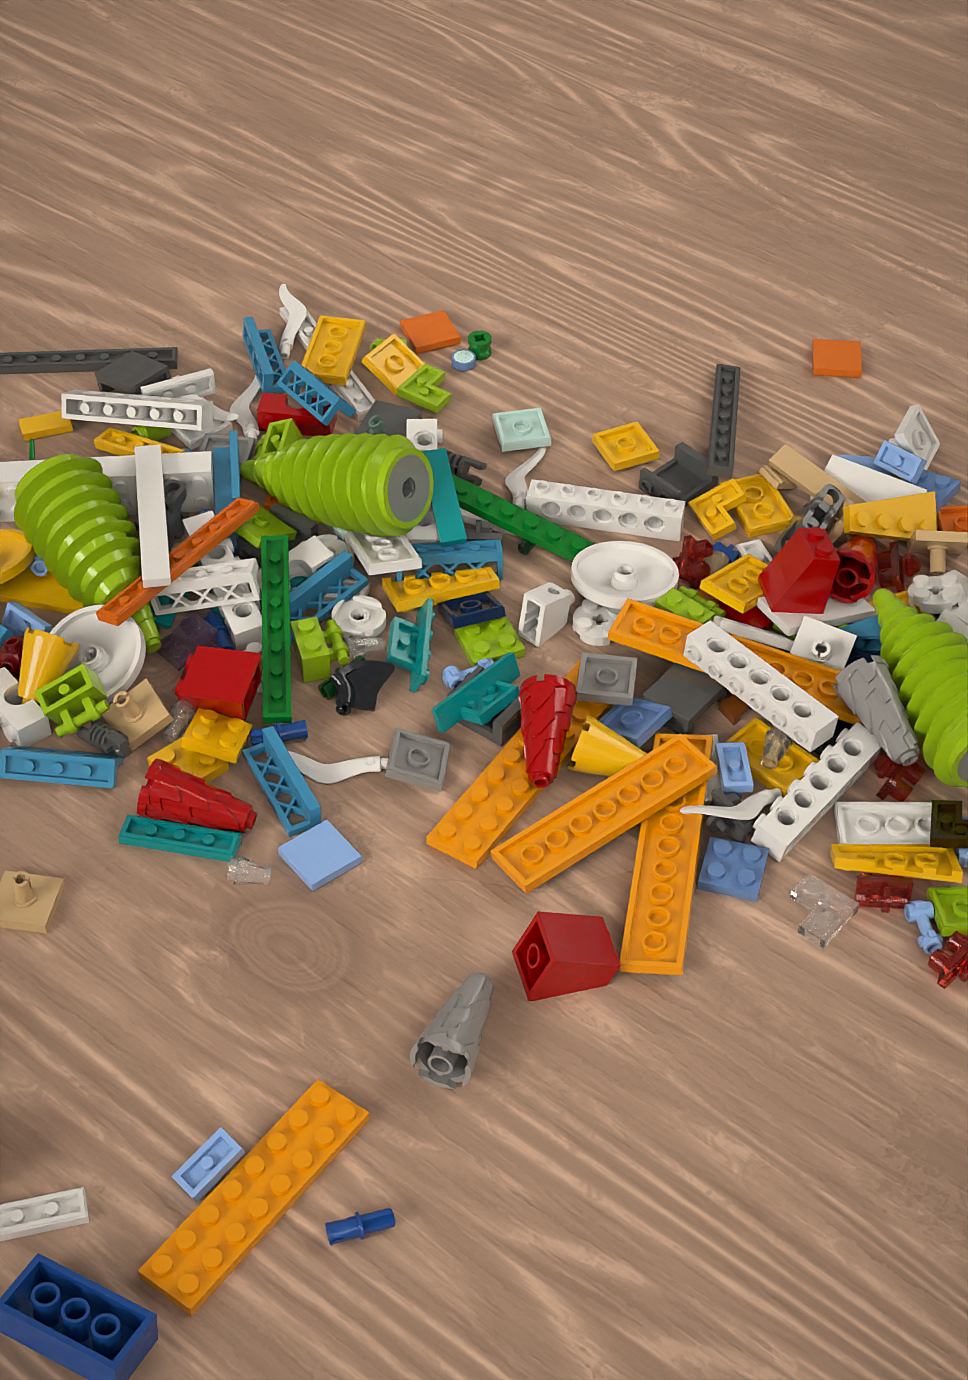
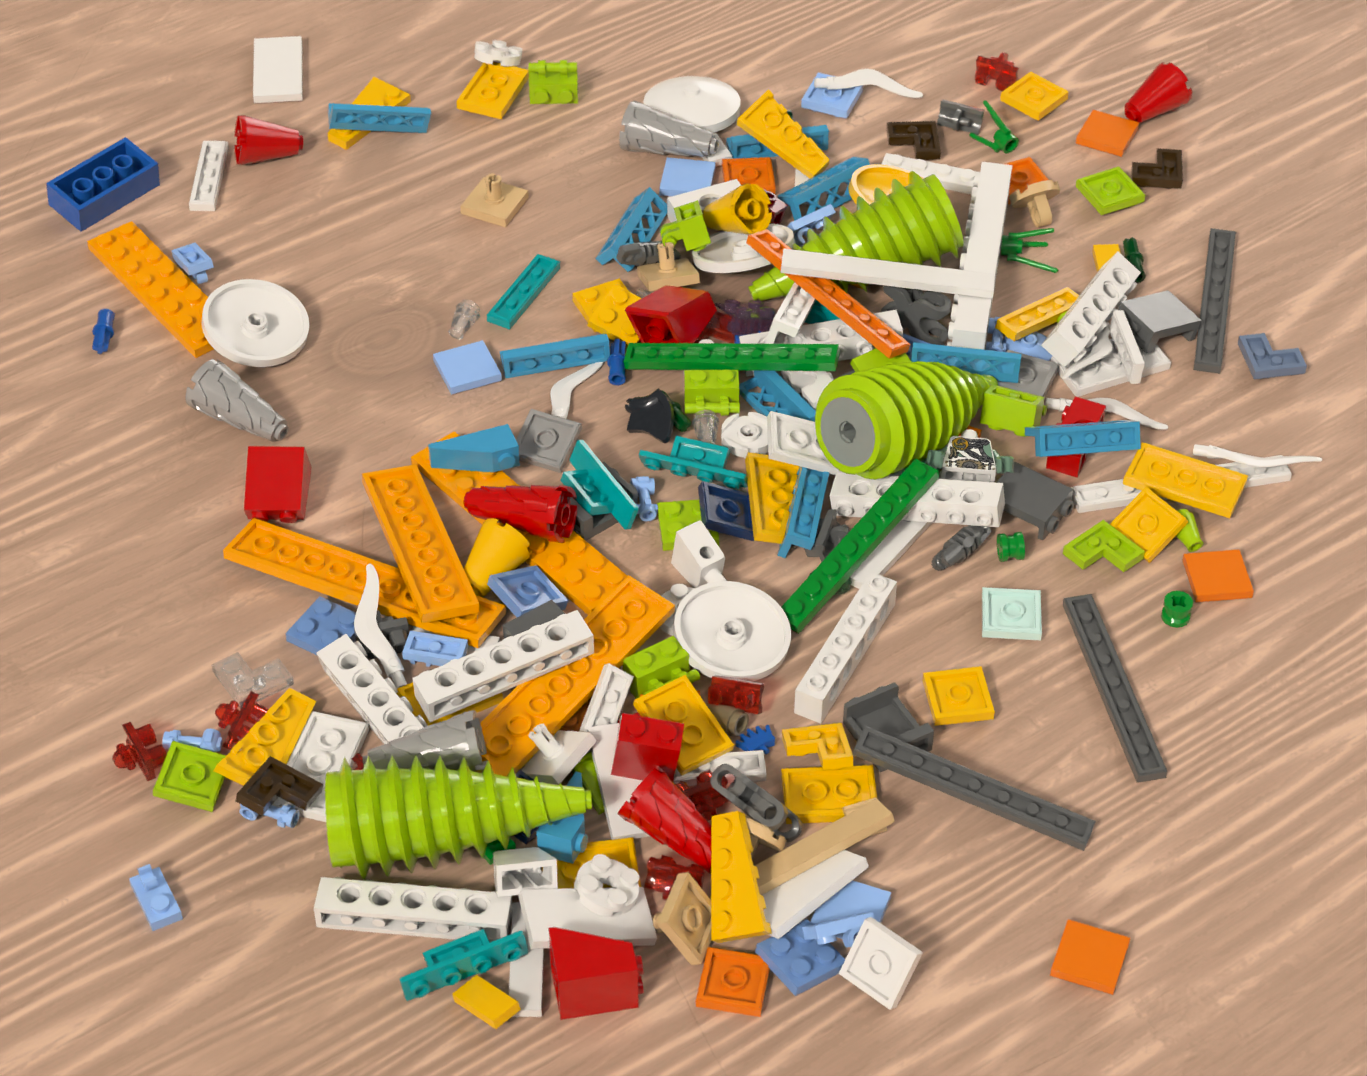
camera: 105 degrees right, 0 degrees up
(38, 407) = (1134, 257): none -> dark green axle
(163, 322) = (1267, 363): none -> sand blue plate
(189, 800) = (552, 285): red cone -> none
(259, 358) = (1187, 421): dark azure fence -> none
(317, 1052) = (255, 323): none -> white dish
(445, 501) = (866, 488): teal tile -> none
(451, 437) = (1010, 546): none -> green wheel
(463, 360) = (1154, 593): tile -> none
(465, 783) = (478, 451): none -> dark azure slope
(516, 479) = (937, 598): white piece -> none
(570, 373) = (1114, 689): none -> dark grey tile
(606, 679) = (581, 577): light grey plate -> none

